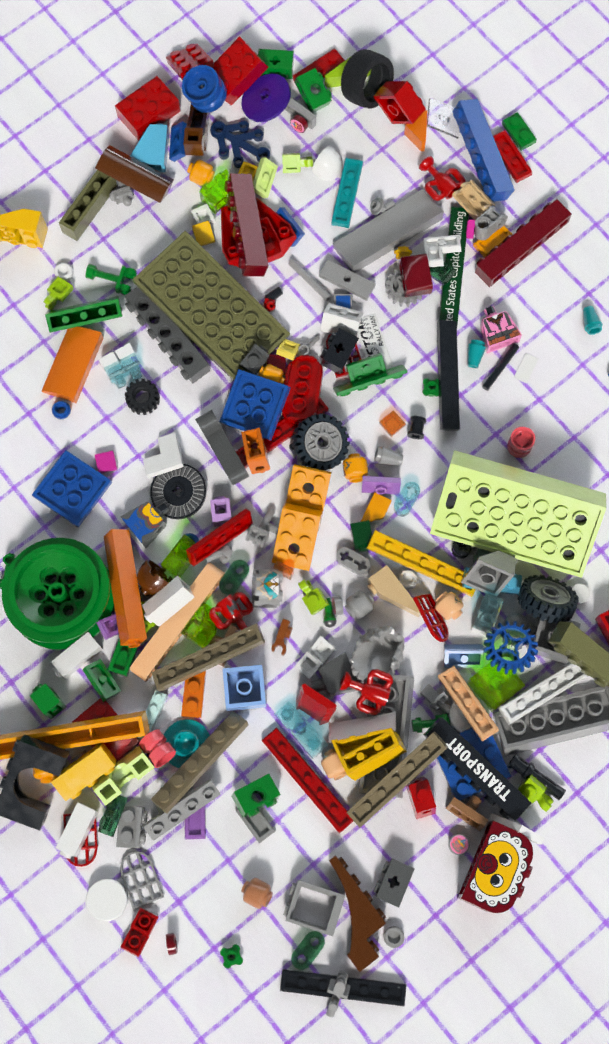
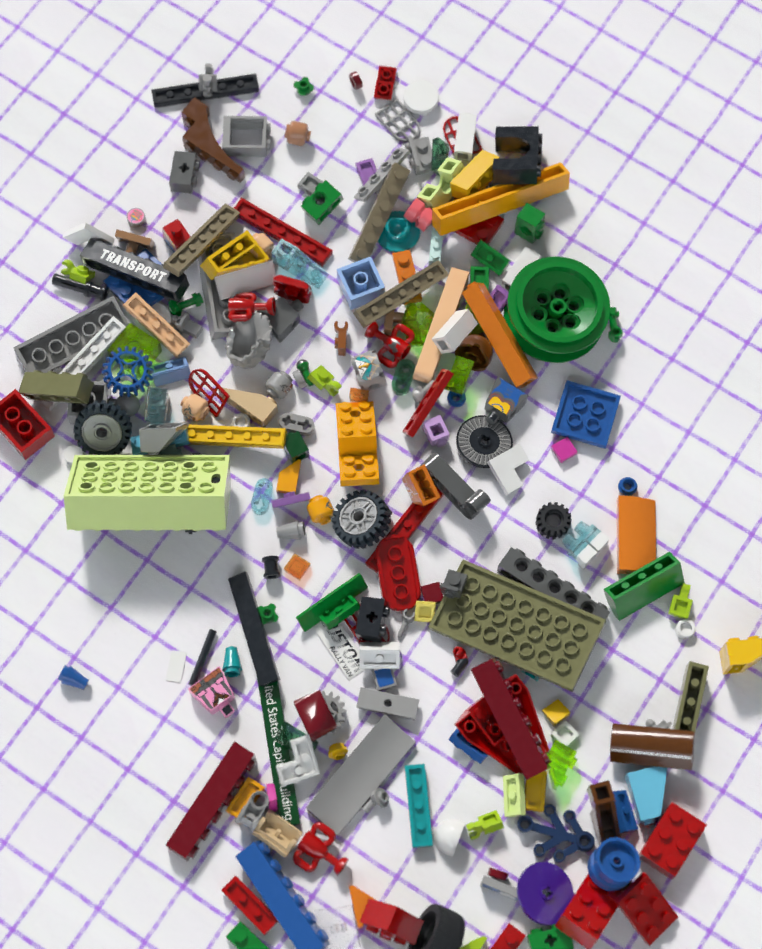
camera: 160 degrees right, 5 degrees down
(92, 272) = (655, 635): green bar -> none
(200, 172) = (582, 778): light orange head -> none
(254, 404) = (438, 538): blue plate -> none
(259, 534) = (390, 433): light grey arm -> none
(272, 373) = (432, 573): light orange head -> none
(308, 950) = (241, 107): clear green plate -> none
(312, 282) = (427, 695): light grey bar -> none
(313, 101) = (486, 907): green brick -> none
(315, 657) = (306, 331): white slope -> none
(393, 937) = (173, 136): light grey tile -> none
(498, 869) = (98, 194): brick -> none
(521, 442) = (162, 578): coral wheel -> none
(592, 322) = (118, 733): teal cone -> none

